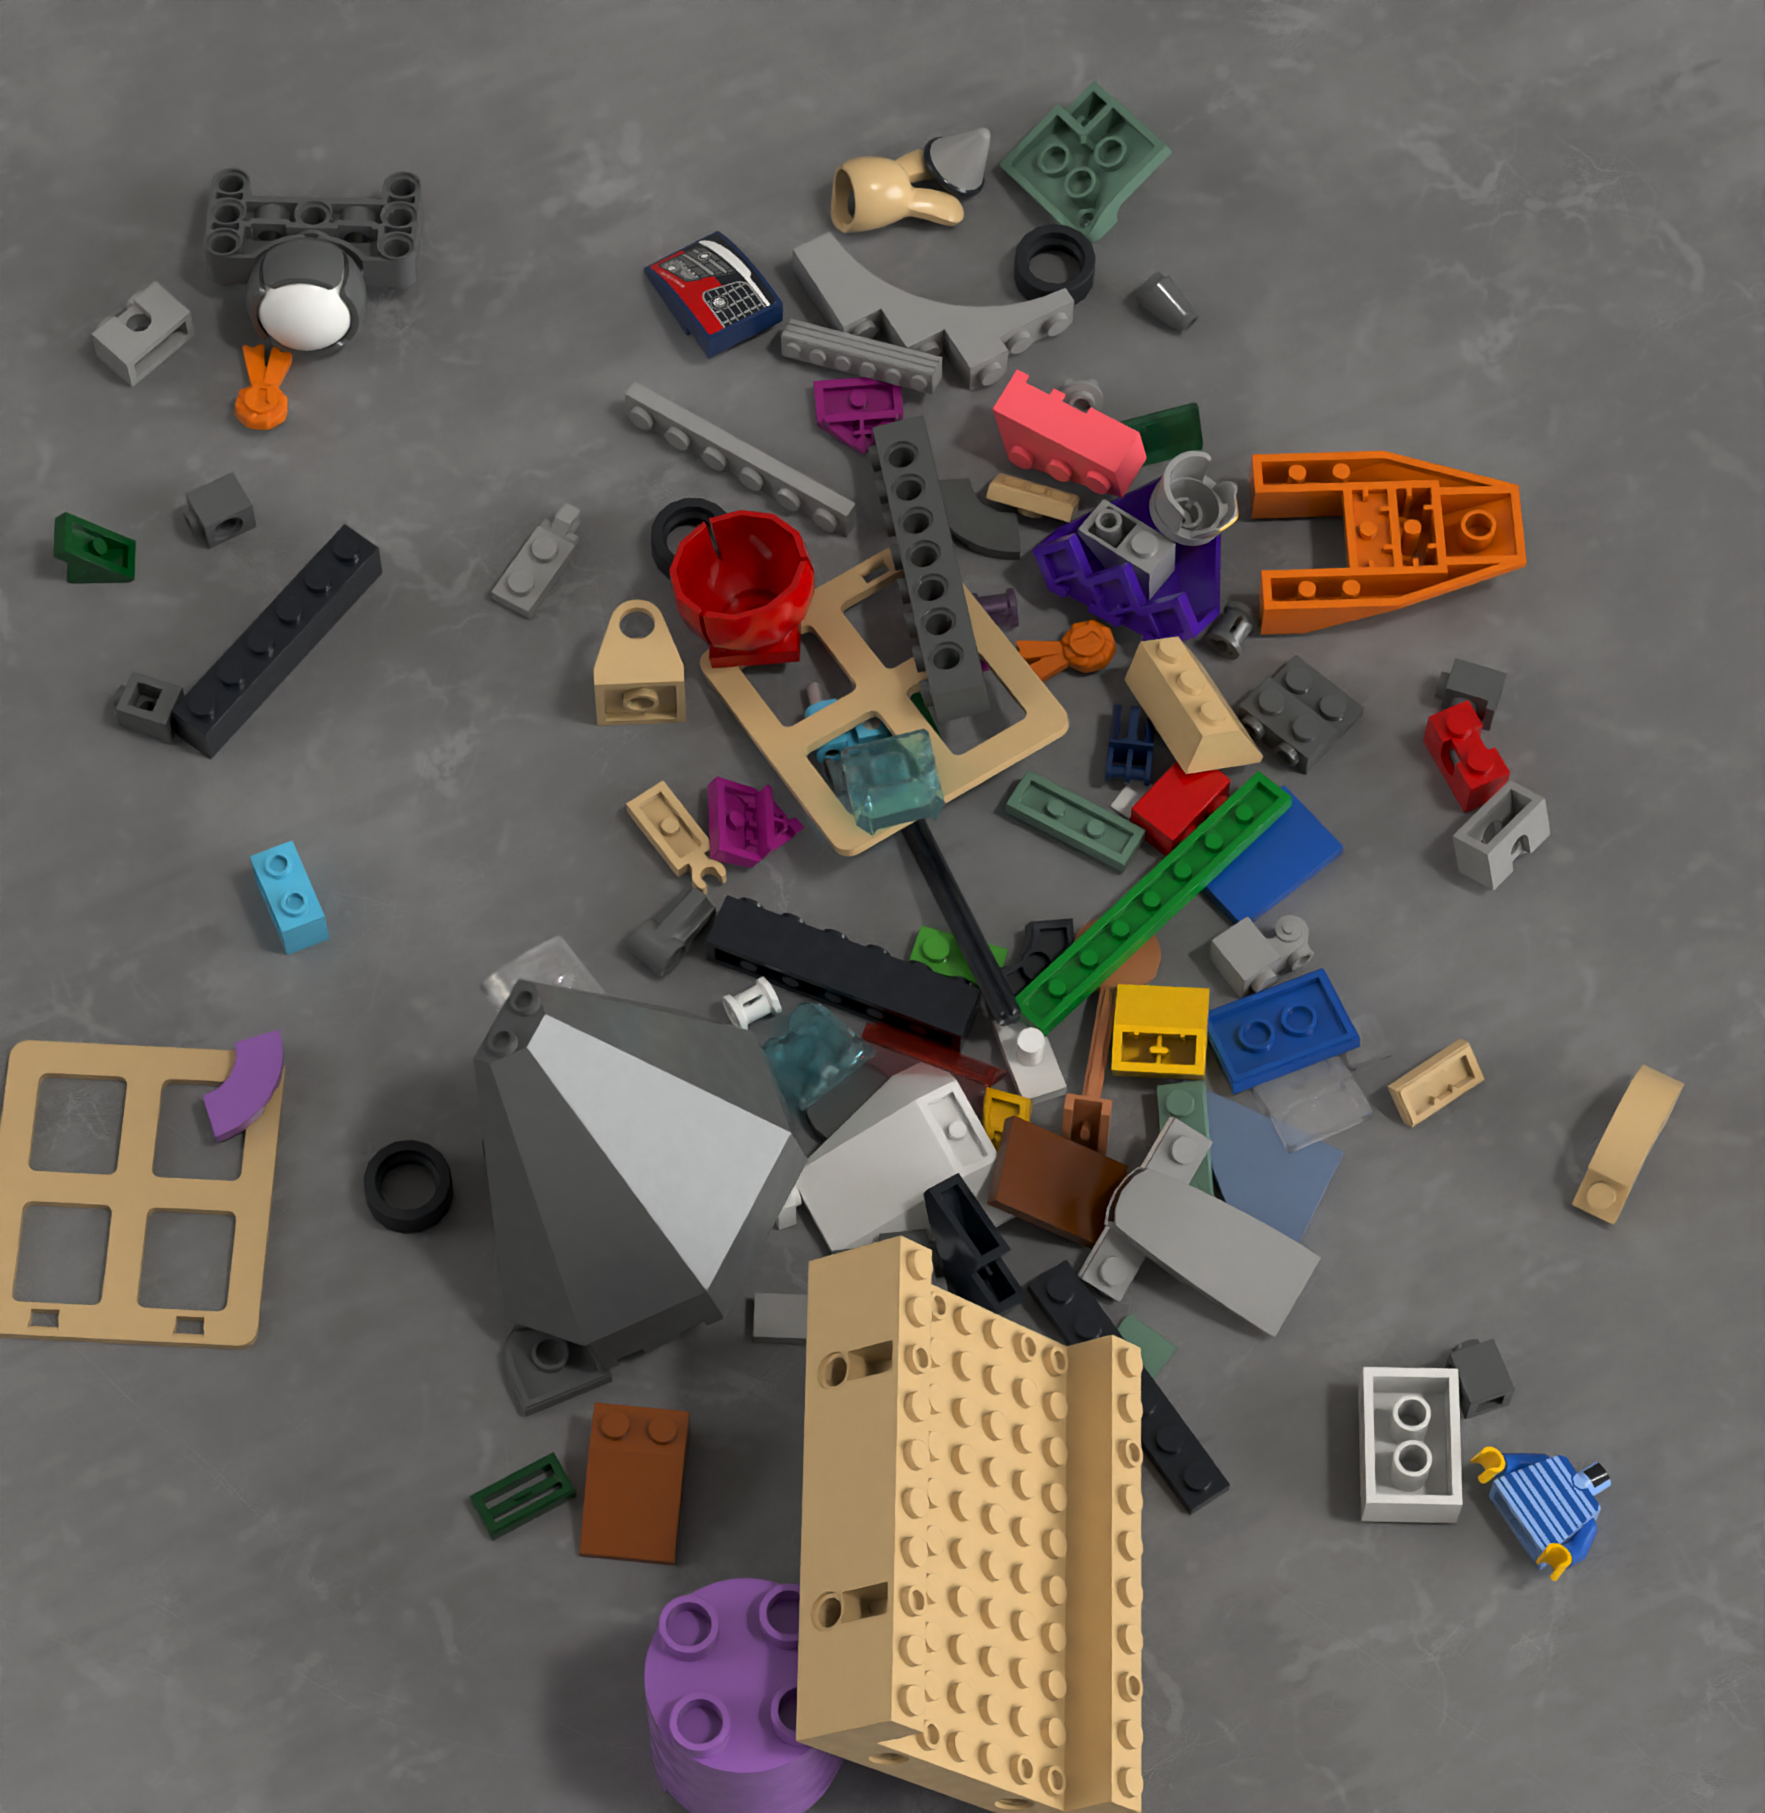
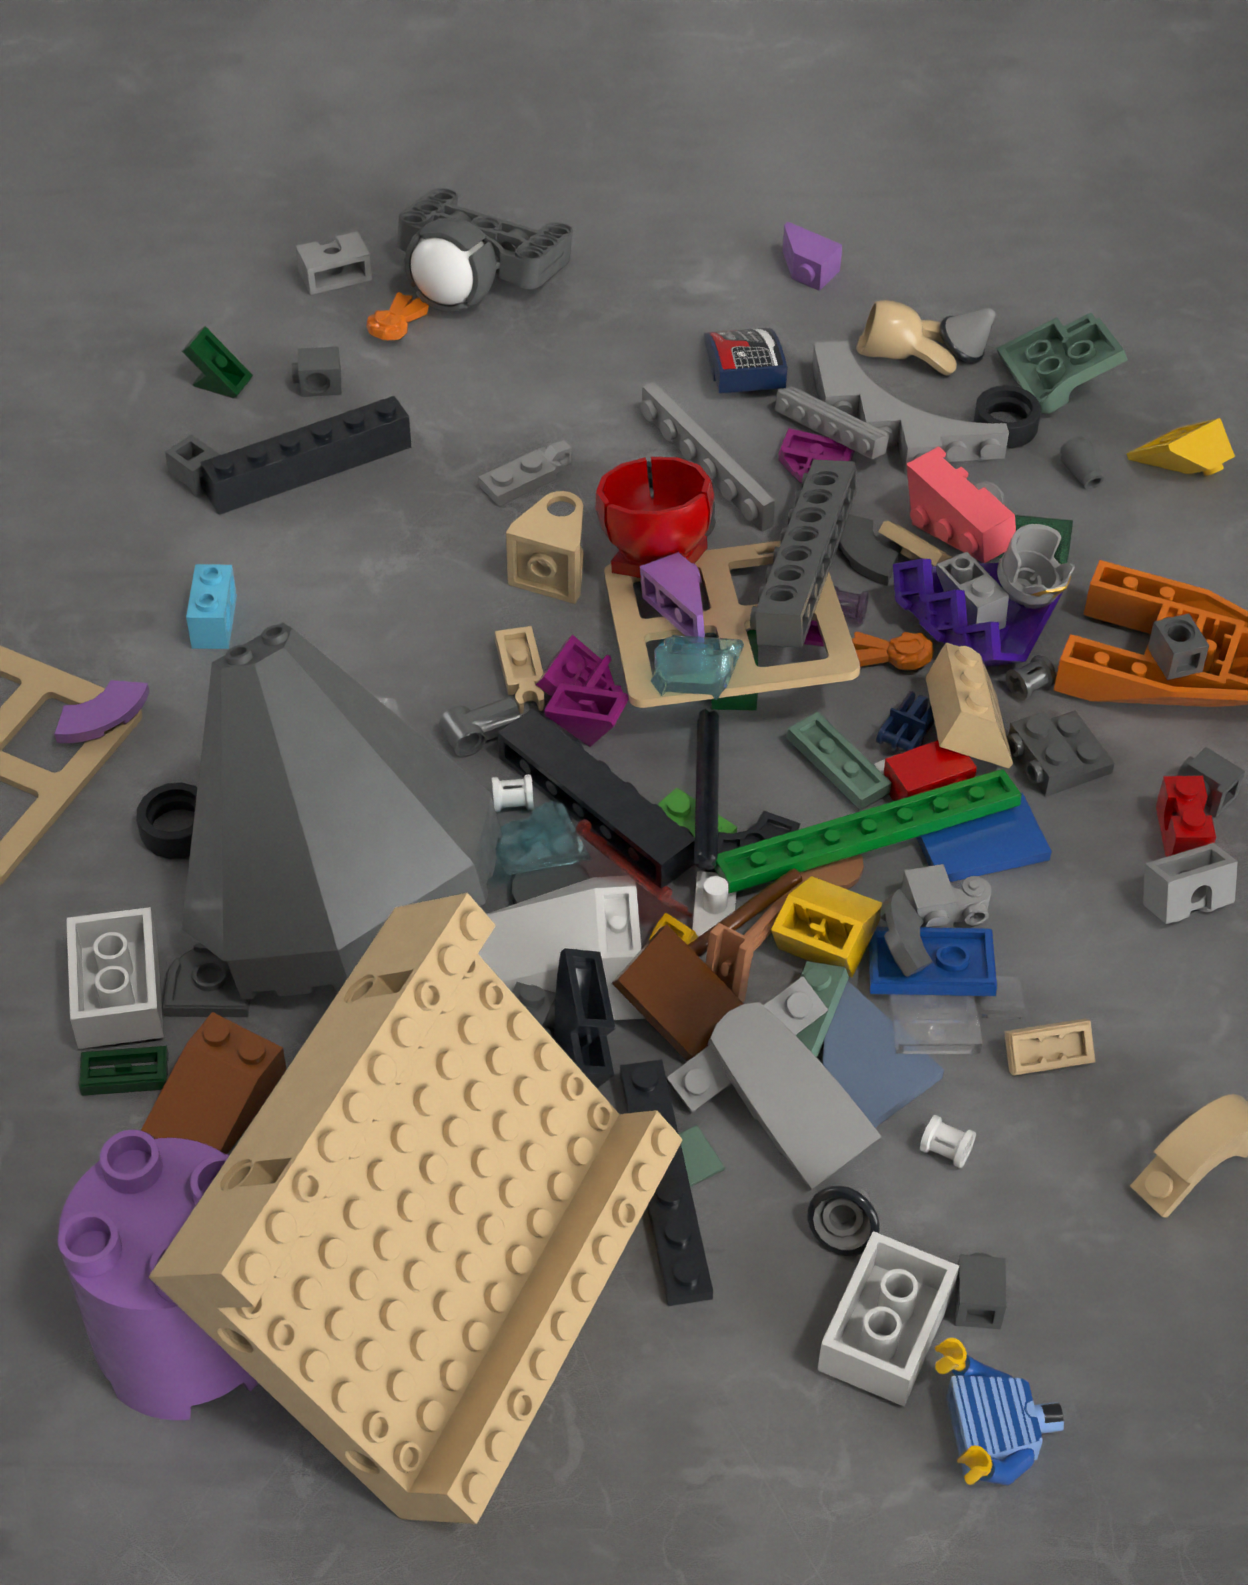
camera: 25 degrees right, 15 degrees down
(462, 1401) = (114, 978): none -> white brick
(717, 103) = (810, 256): none -> medium lavender slope
(785, 872) = (585, 710): none -> magenta slope
(813, 682) = (674, 591): none -> medium lavender slope
(1072, 1057) = (751, 908): none -> reddish brown bar
(1251, 1026) = (904, 934): none -> dark grey tile
(1274, 237) = (1188, 449): none -> yellow slope
(1323, 1358) = (843, 1219): none -> light grey hat
(1381, 1230) = (947, 1141): none -> white bush
(1385, 566) = (1178, 646): none -> dark grey brick

